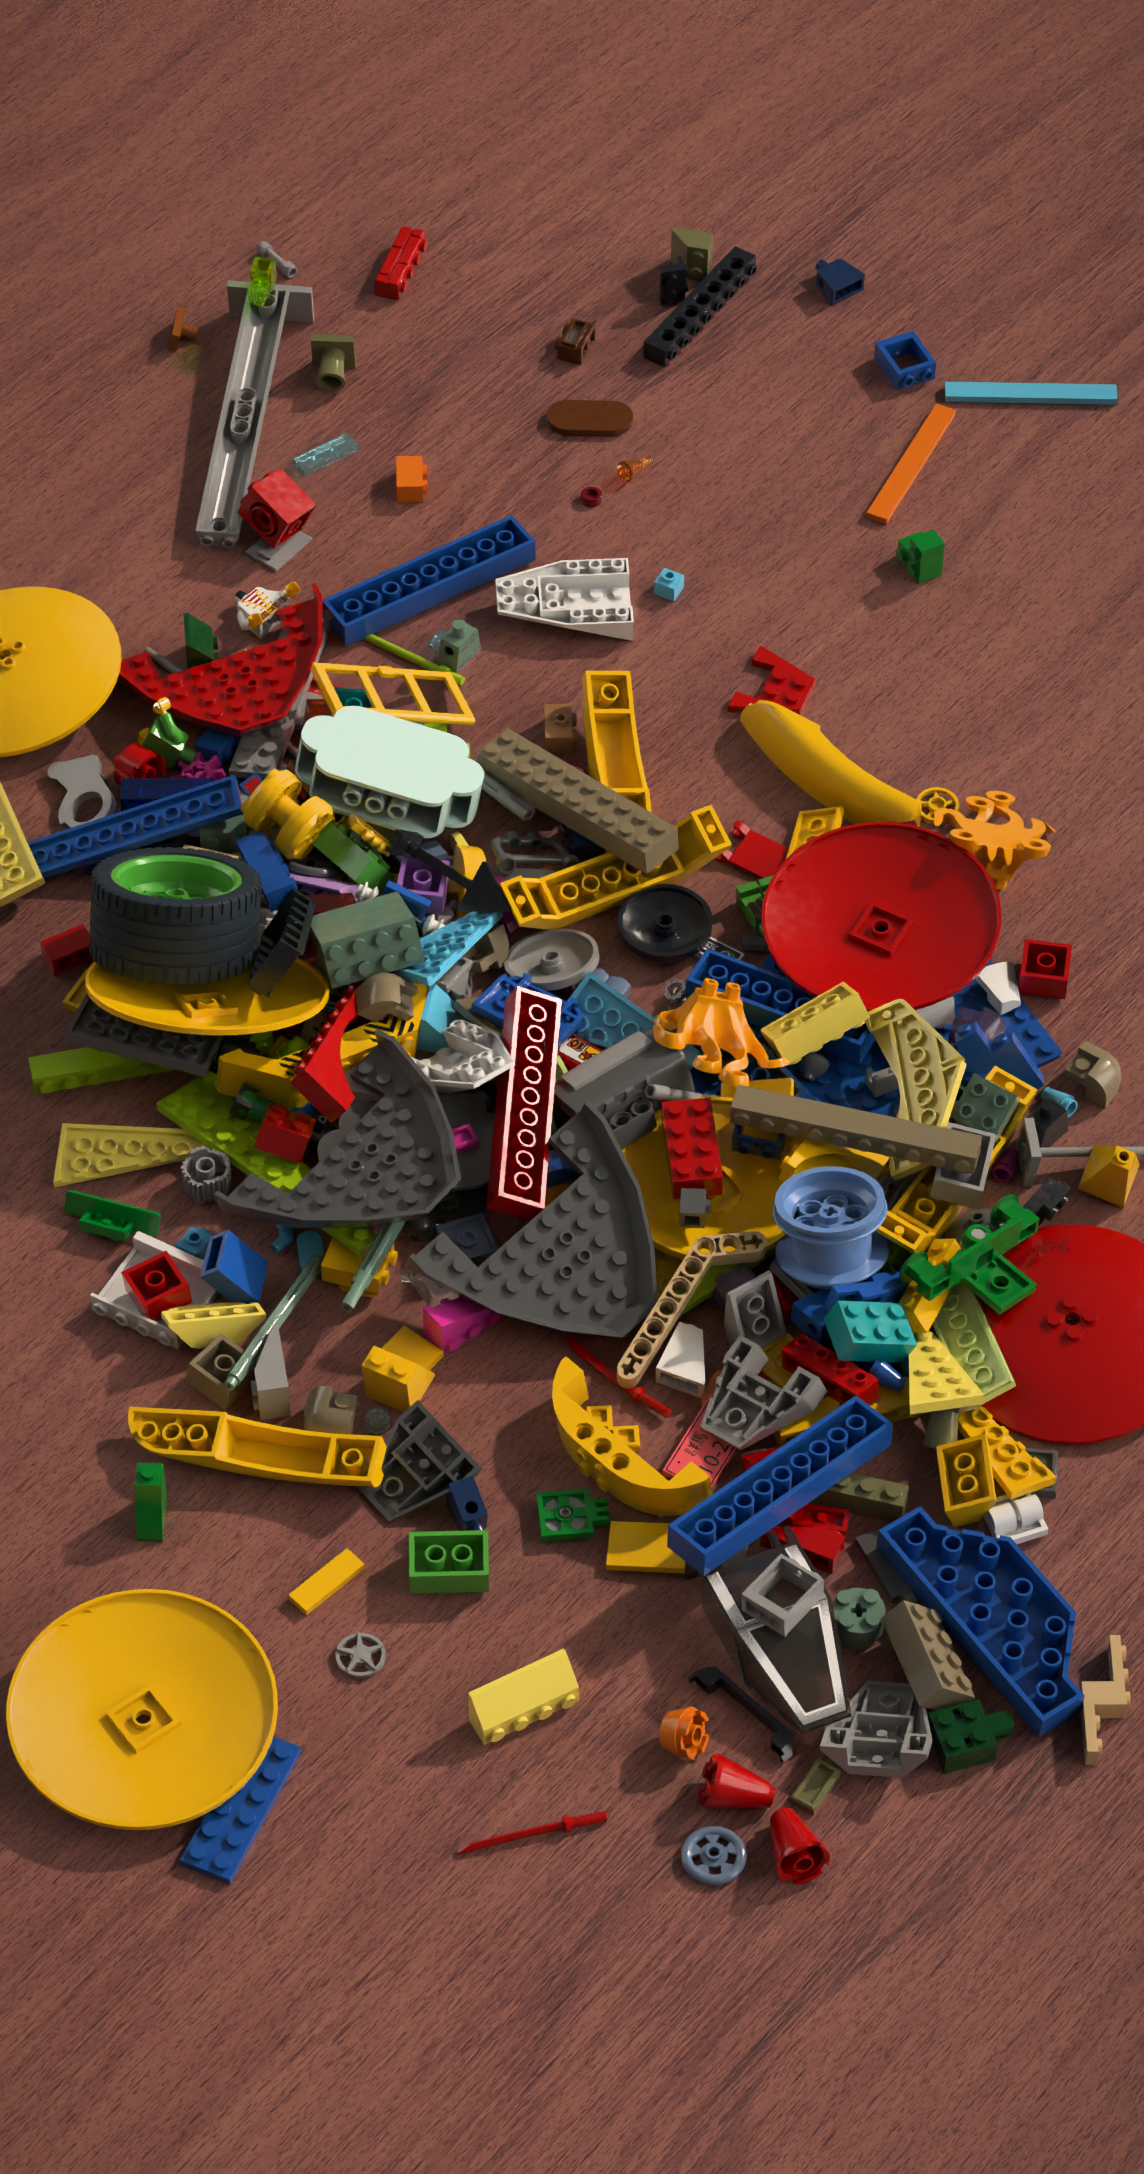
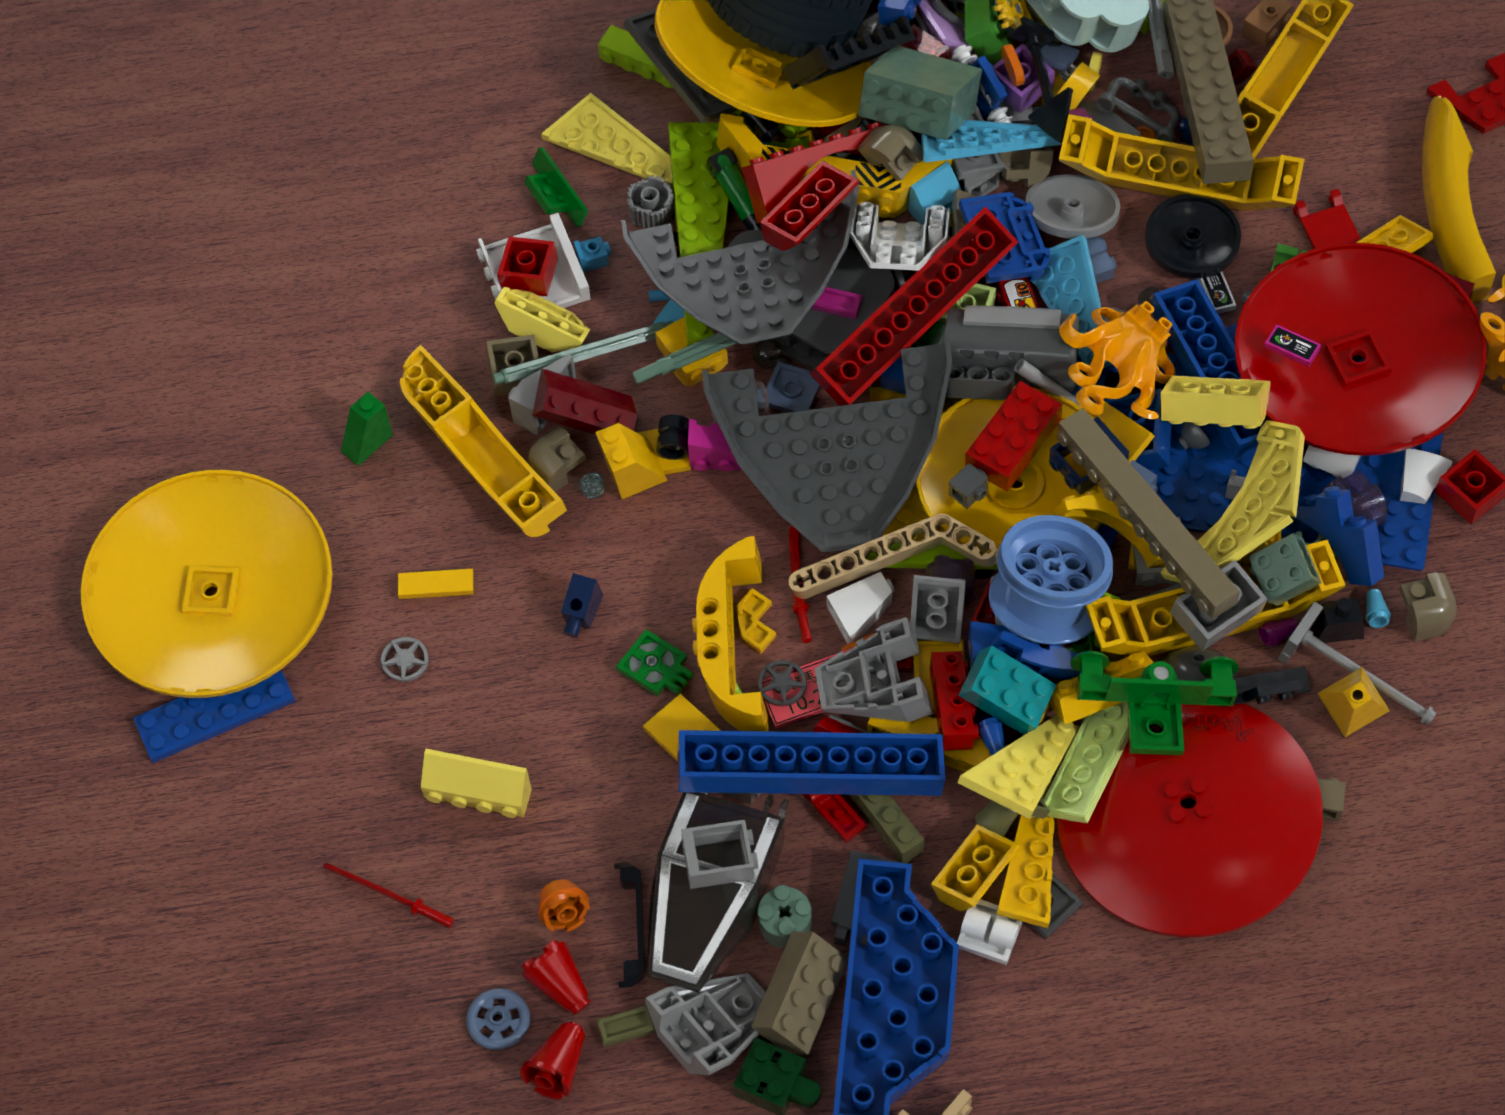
camera: 45 degrees right, 10 degrees up
(233, 1268) = (593, 291): blue brick -> none
(284, 1133) = (723, 208): red brick -> none
(321, 1358) = (581, 404): none -> dark red slope
(374, 1078) = (806, 206): none -> red slope
(414, 1335) = (673, 437): none -> black wheel
(416, 874) = (1012, 65): none -> orange tile
(418, 1465) = (584, 541): dark grey wedge -> none
(448, 1561) = (527, 635): bright green brick -> none
(683, 1454) = (782, 682): none -> dark grey wheel
(820, 1544) = (810, 830): red slope -> none
(834, 946) = (1292, 345): none -> tile

